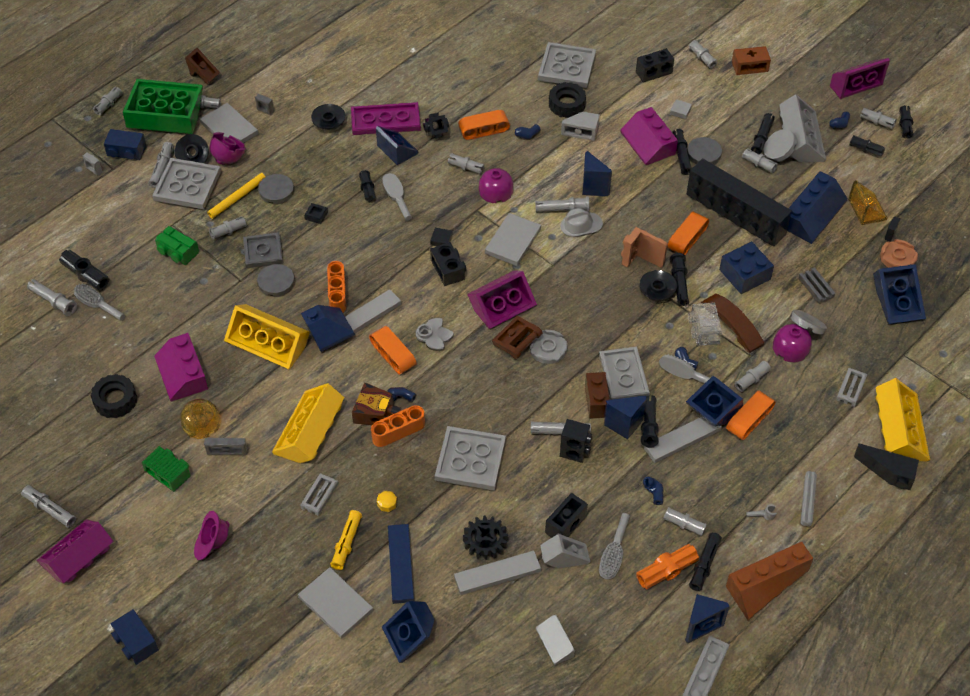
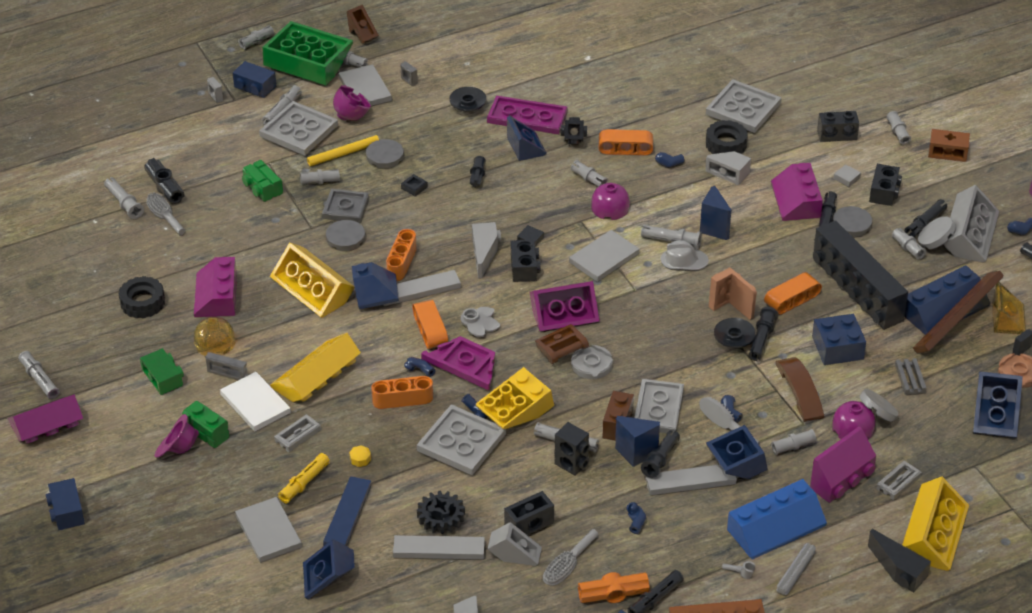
camera: 20 degrees right, 10 degrees down
(187, 144) = (315, 92): black dish -> none
(235, 511) = (210, 425): none -> green brick
(266, 473) = (255, 401): none -> white tile
(373, 405) = (384, 365): torso -> none
(395, 191) = (503, 180): light grey piece -> none
(405, 256) = (485, 245): none -> light grey slope
(438, 377) = (464, 360): none -> magenta wing
(468, 422) = (470, 402): none -> dark blue arm
(504, 406) = (517, 400): none -> yellow slope
(684, 521) = (652, 553): light grey pin -> none
(705, 324) = (765, 380): clear brick -> none
(717, 110) = (885, 184): none -> black brick
(750, 415) = (772, 476): orange beam -> none
(773, 456) = (776, 519): none -> blue slope
(807, 390) = (843, 465): none -> magenta slope
(832, 216) = (958, 312): none -> reddish brown tile

